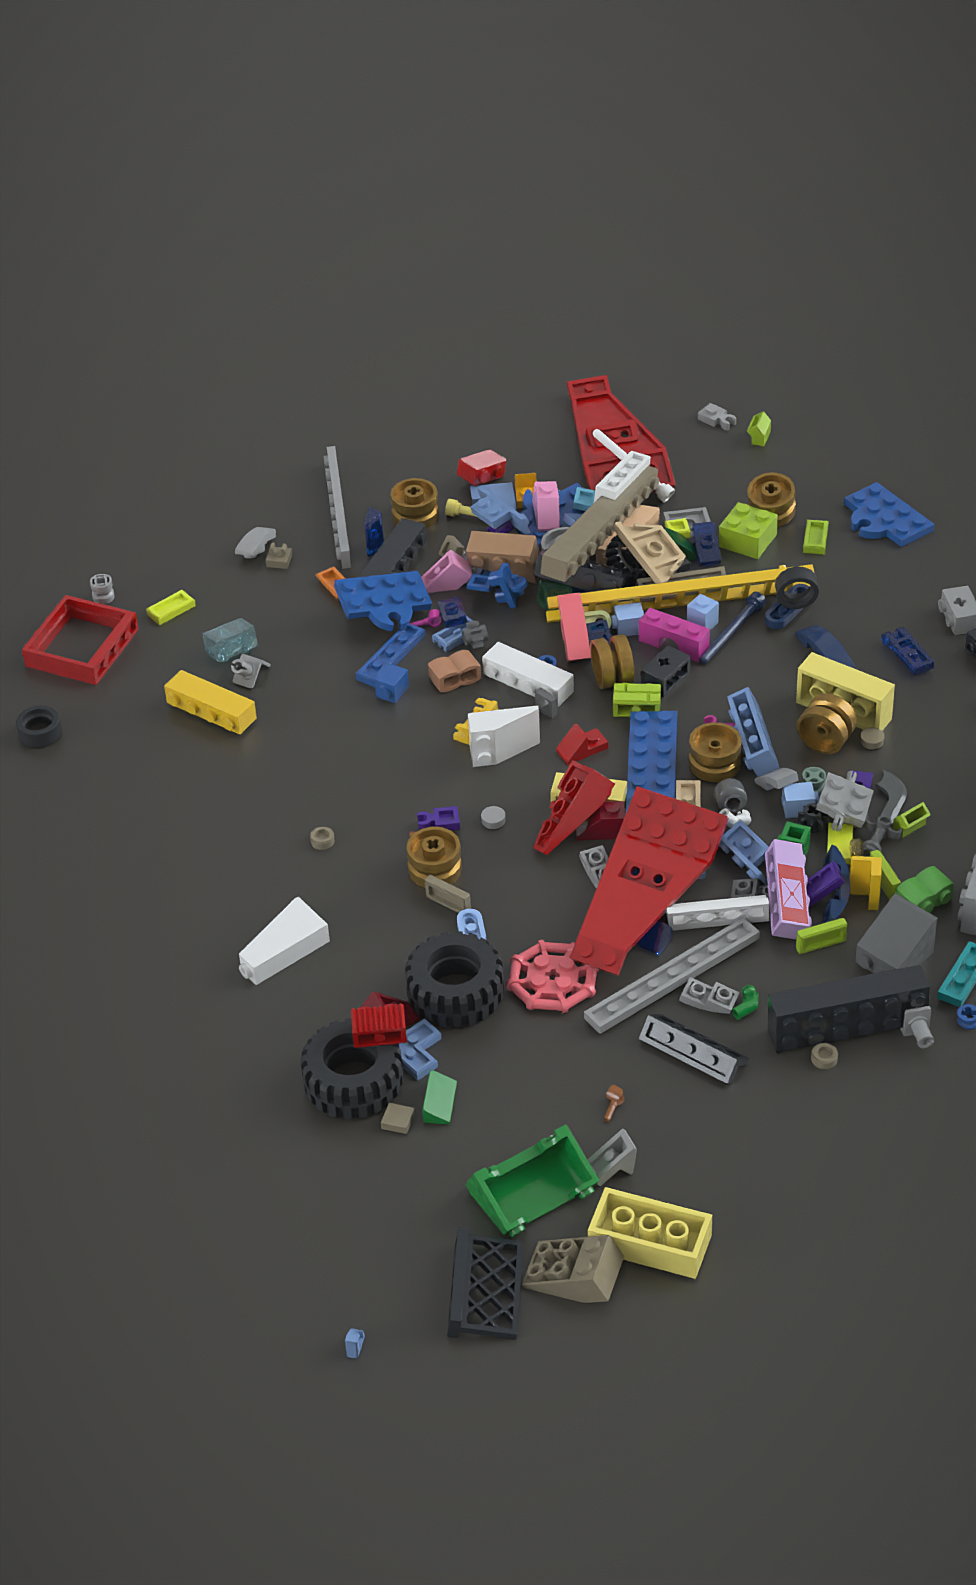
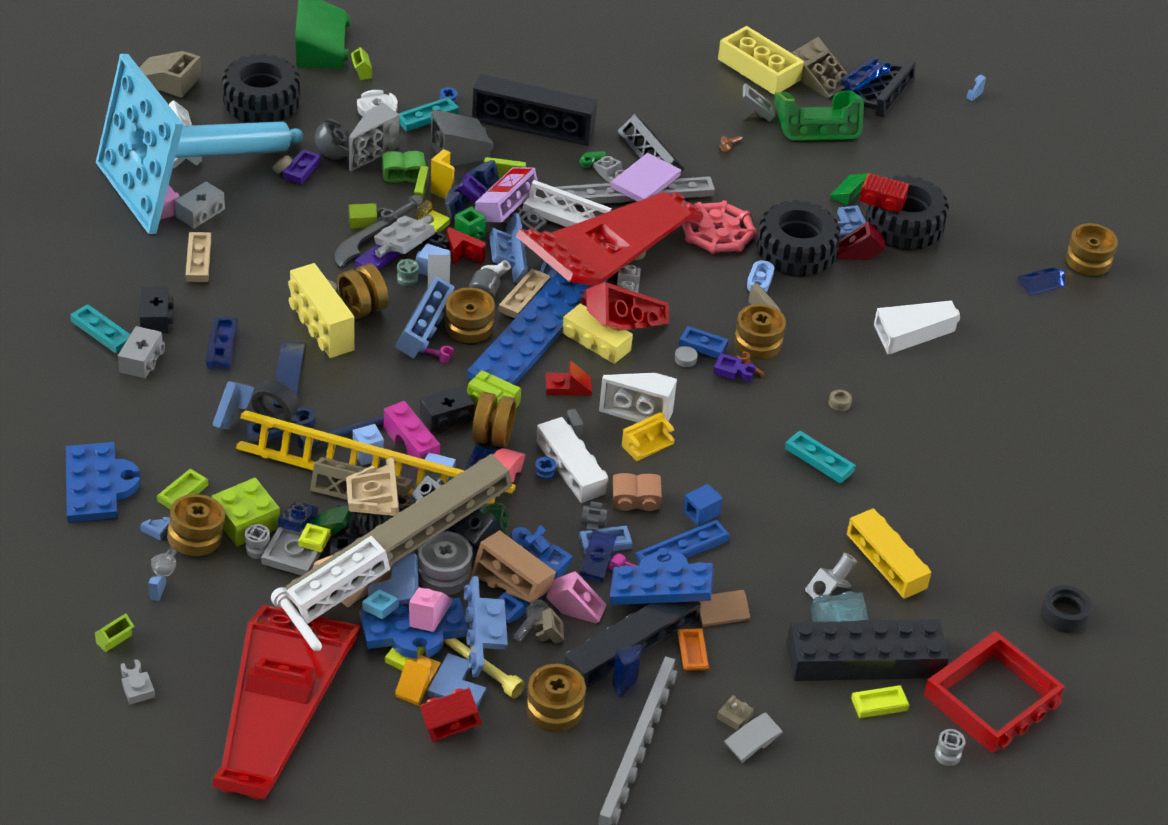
camera: 160 degrees left, 0 degrees up
(120, 1116) = (1091, 249): none -> pearl gold wheel
(169, 1074) = (1042, 280): none -> clear blue slope
(180, 629) = (866, 650): none -> black brick
(312, 769) = (820, 457): none -> teal plate
(327, 621) = (724, 609): none -> medium nougat slope
(484, 833) = (703, 342): none -> blue plate
(506, 1277) = (865, 74): none -> clear blue plate
(663, 982) = (645, 178): none -> lavender tile
(718, 513) = (257, 540): none -> light grey wheel
(760, 463) = (156, 587): none -> medium blue tile
(772, 827) = (465, 246): none -> red slope
(806, 506) = (156, 528): none -> medium blue tile
(838, 593) = (235, 396): none -> medium blue tile

